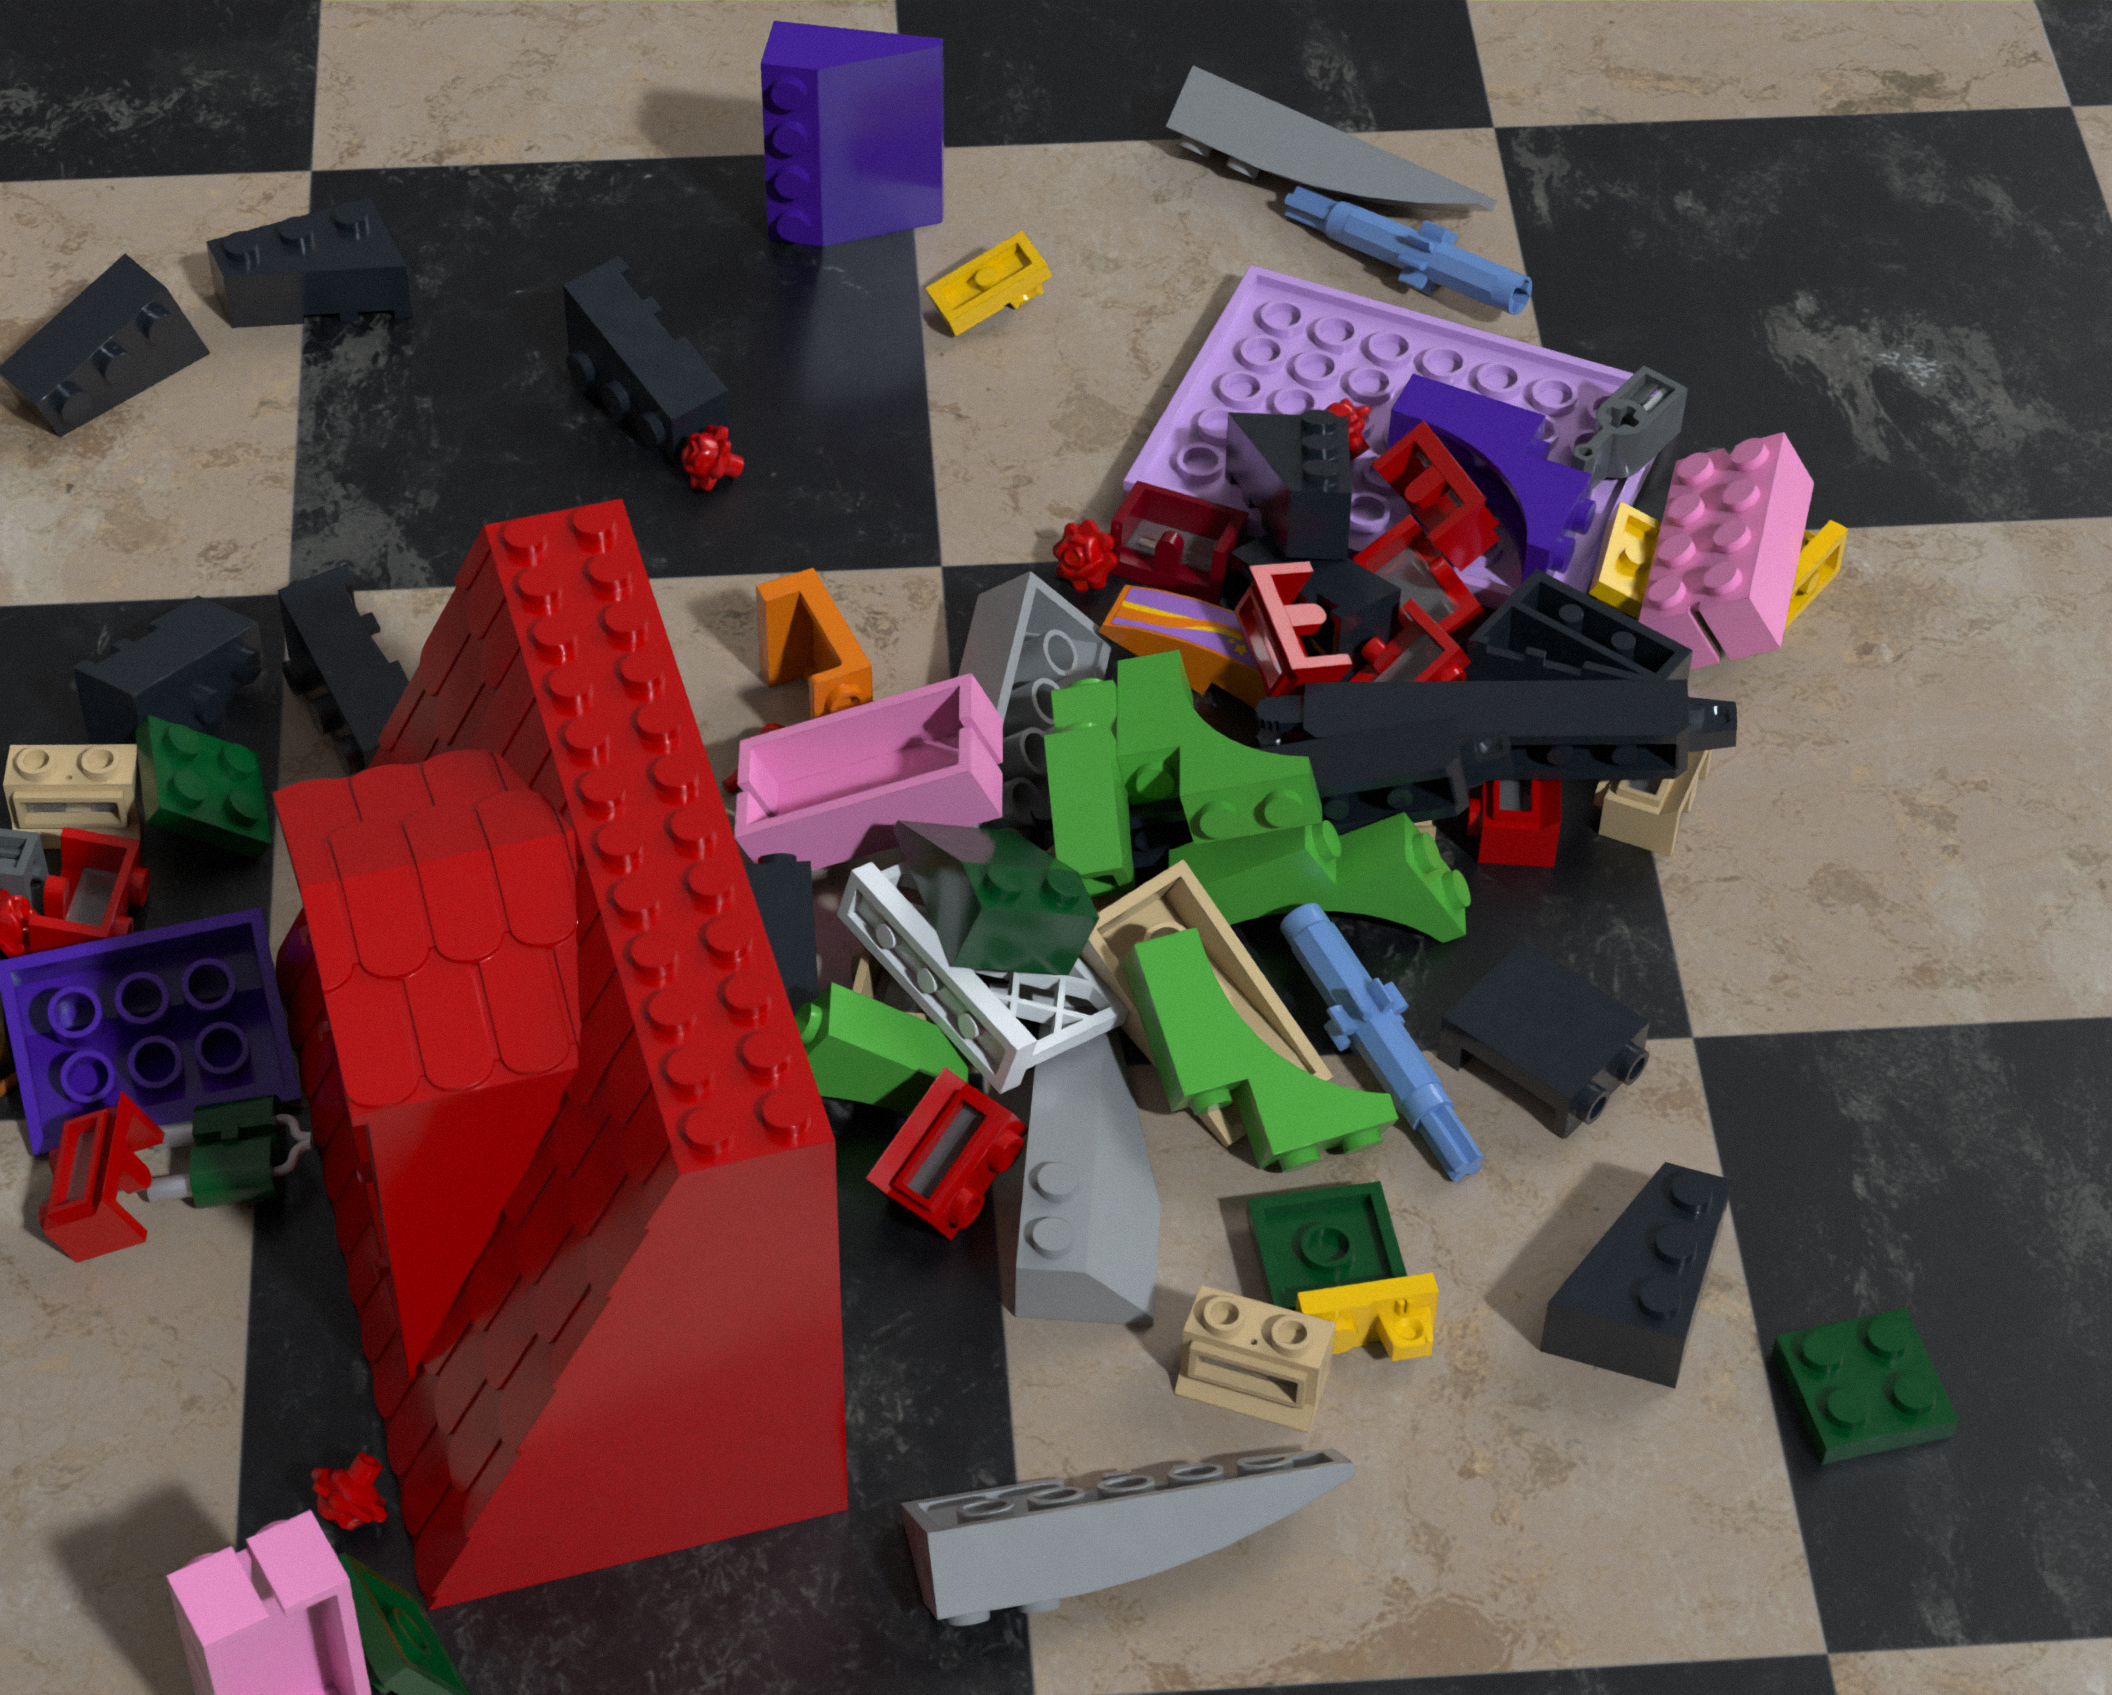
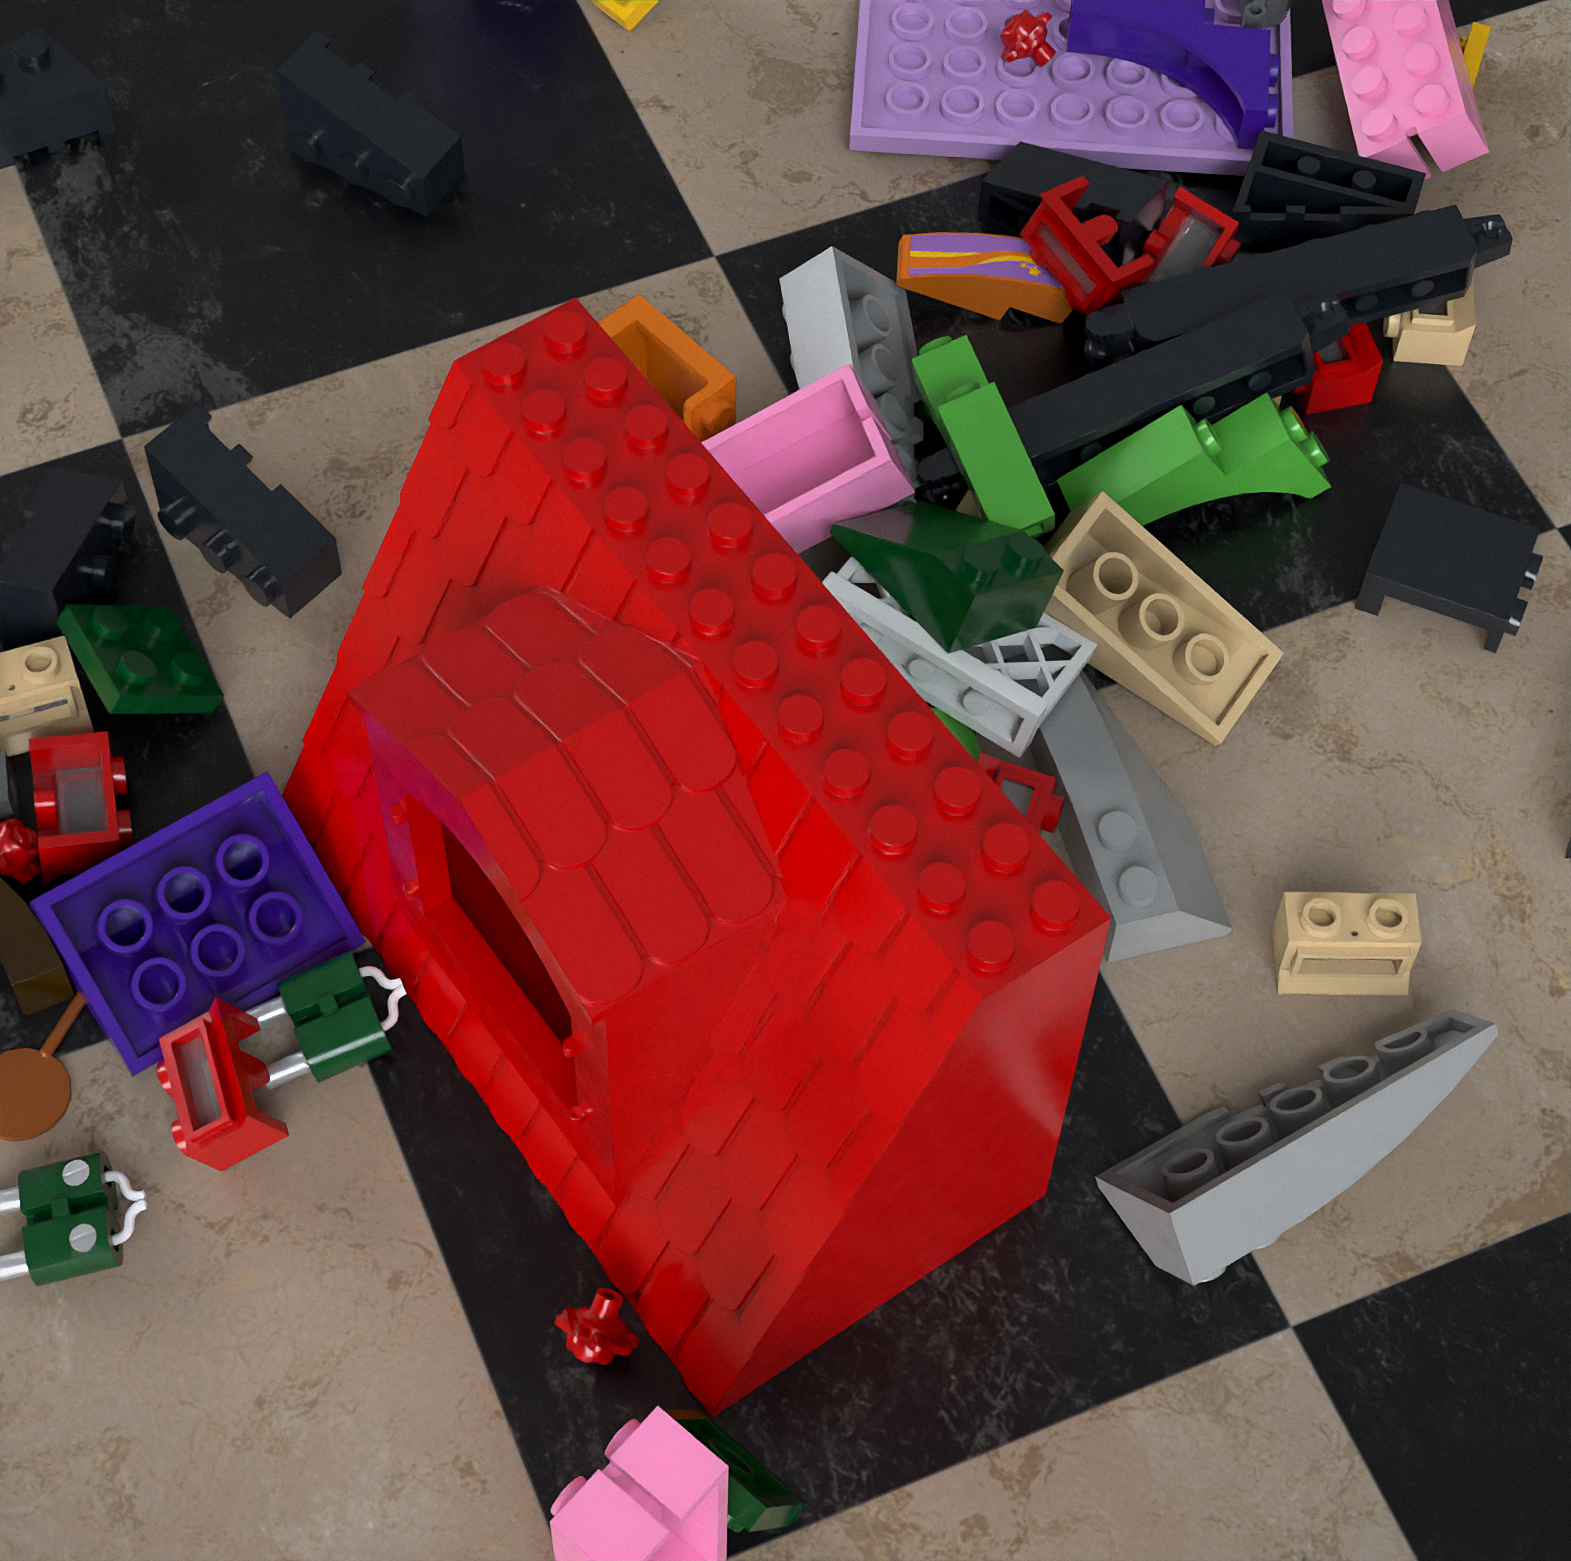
camera: 20 degrees left, 10 degrees up
(709, 458) = (465, 205): red plant -> none
(1085, 555) = (846, 214): red plant -> none
(1175, 754) = (1047, 389): bright green arch -> none
(1176, 541) = (922, 182): dark red window -> none
(1211, 1053) = (1197, 670): bright green arch -> none
(1295, 477) = (1023, 95): black wedge -> none
(1323, 1240) = (1357, 821): dark green plate -> none
(1370, 1023) = (1295, 593): medium blue piece -> none
(1387, 1310) = (1441, 862): yellow hinge -> none
(1417, 567) = (1149, 152): red window -> none
(1439, 495) = (1148, 81): red window -> none
(1625, 559) = (1319, 101): yellow hinge -> none

